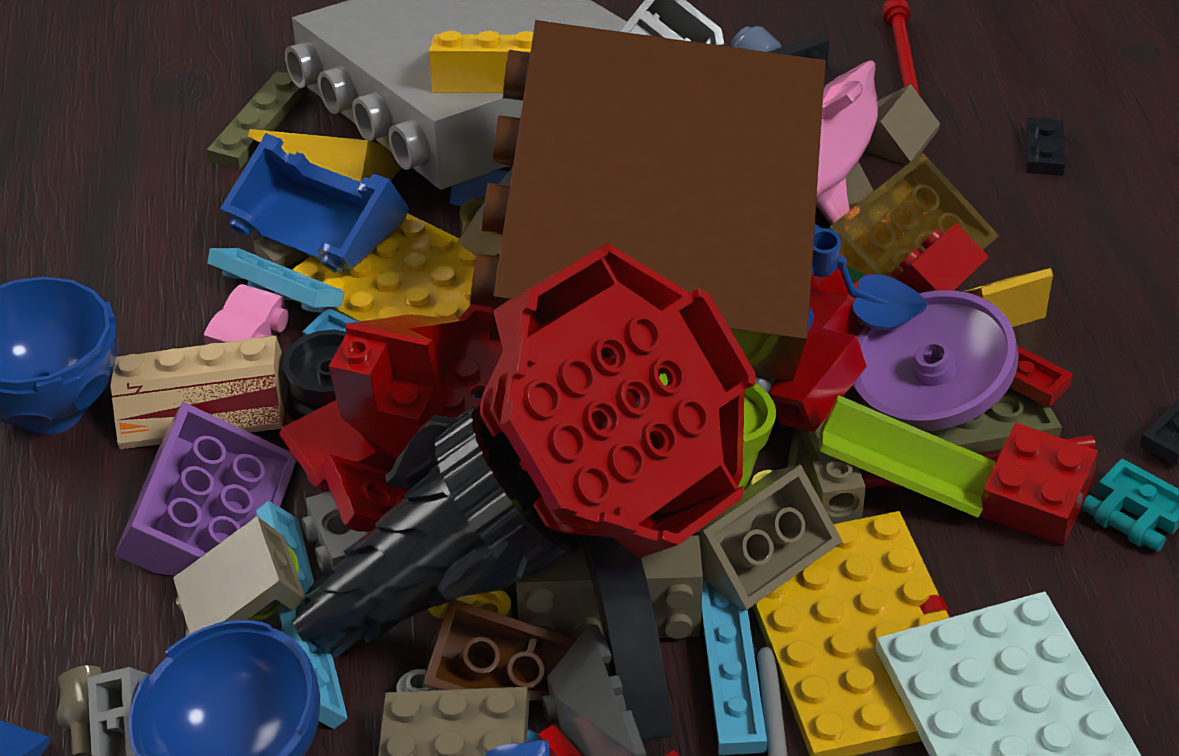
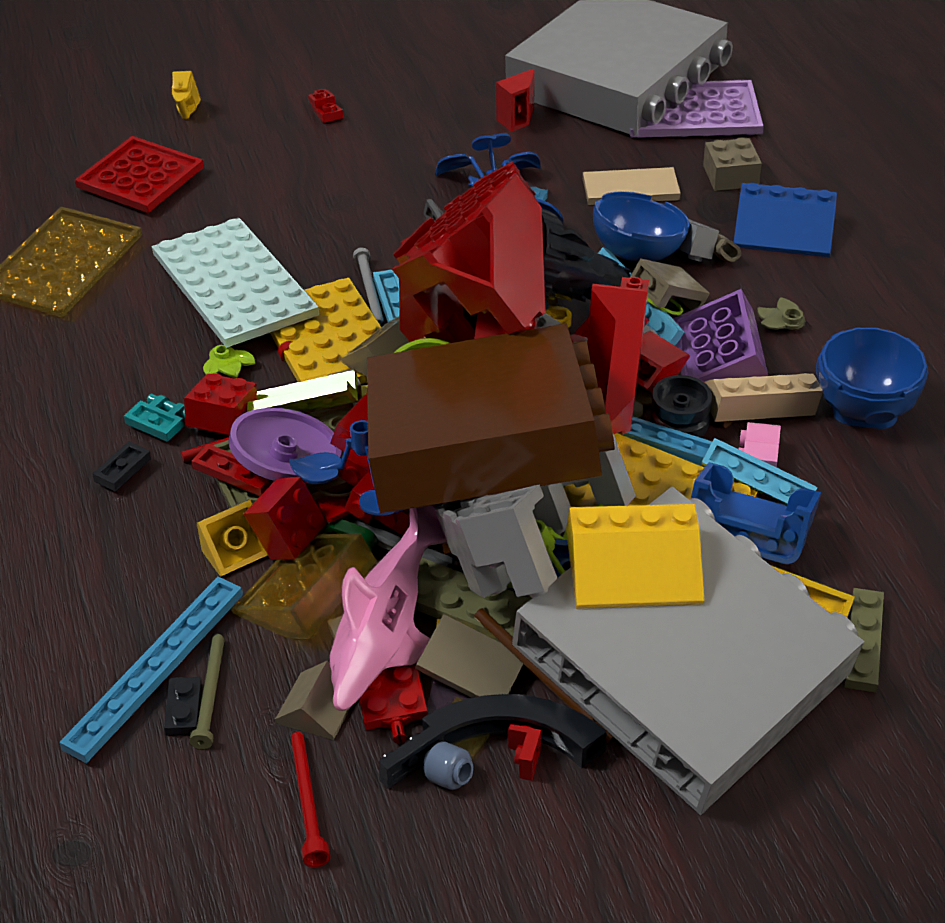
camera: 170 degrees right, 0 degrees up
(69, 554) = (784, 316): none -> olive plate
(1018, 110) = (202, 737): none -> olive bar
(1033, 578) = (227, 361): none -> lime plate
(1080, 181) = (150, 670): none -> dark azure plate

